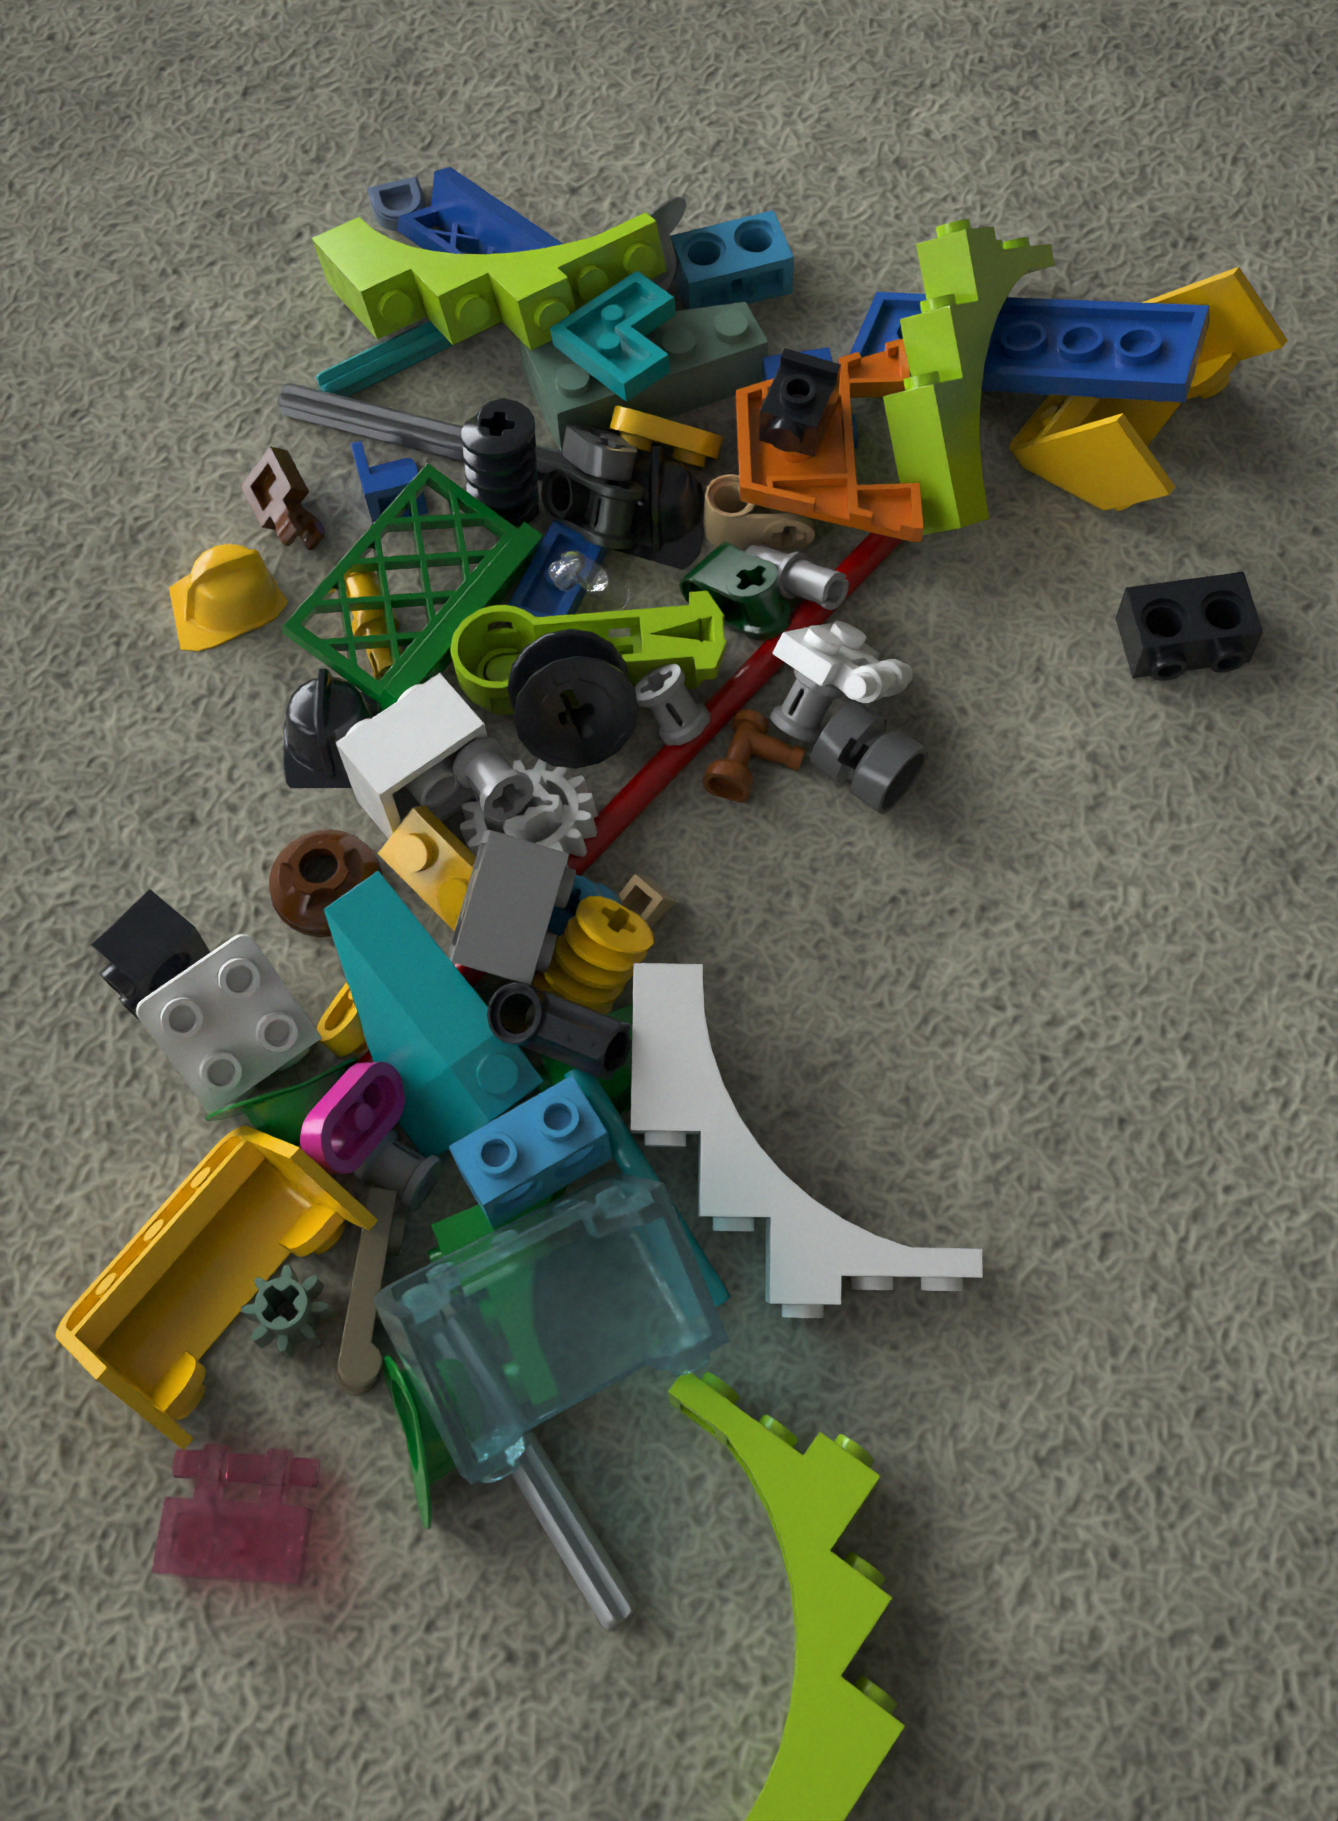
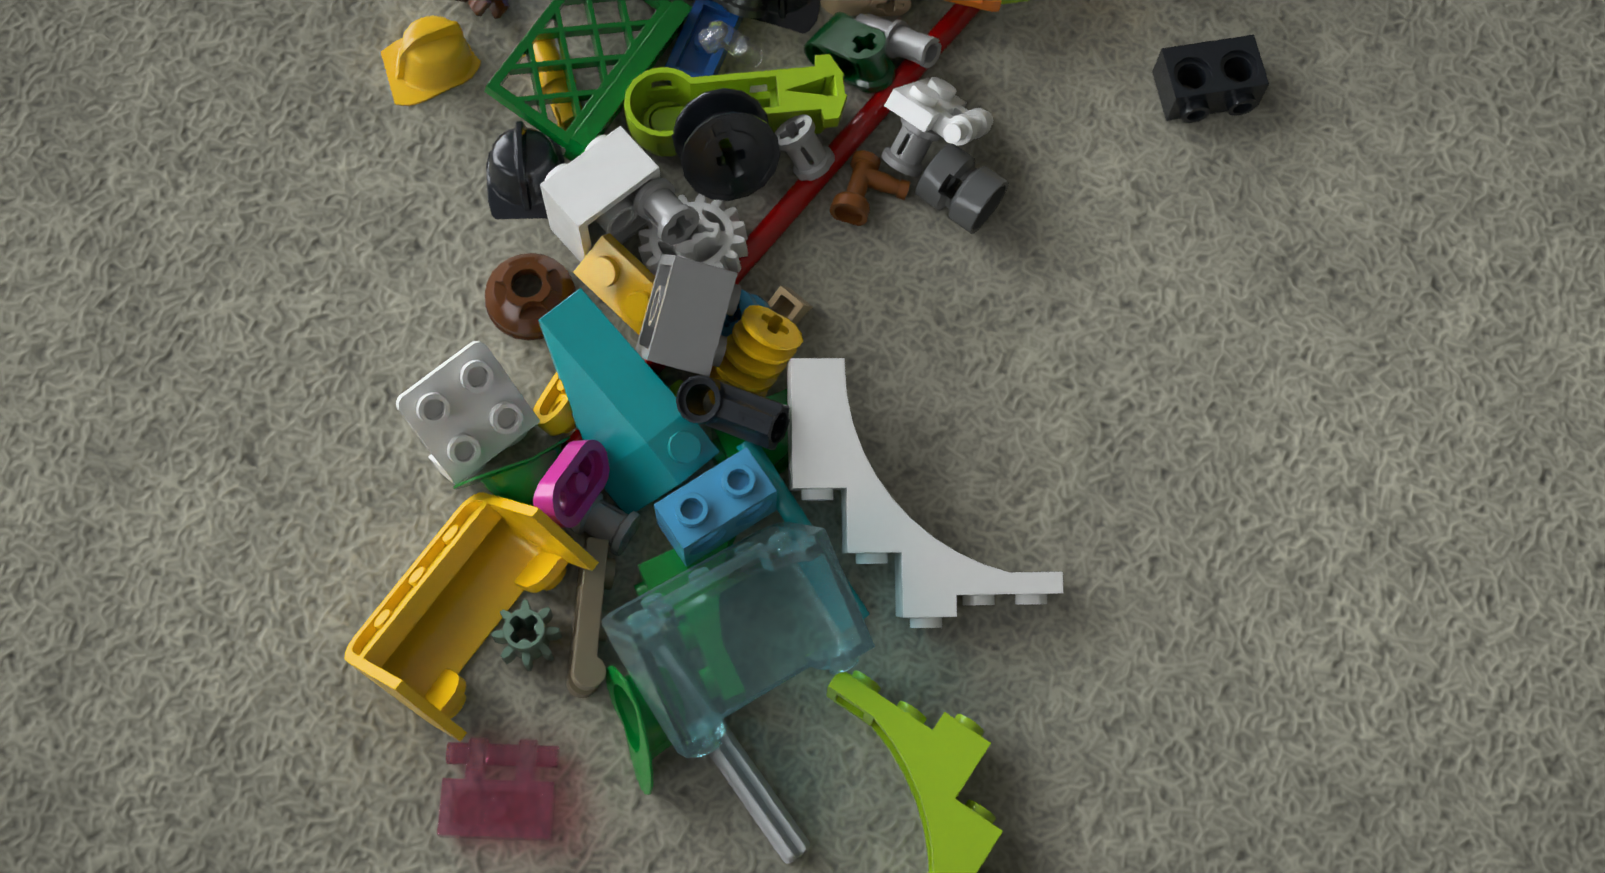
camera: 10 degrees left, 5 degrees up
(147, 949) = (398, 356): black brick -> none

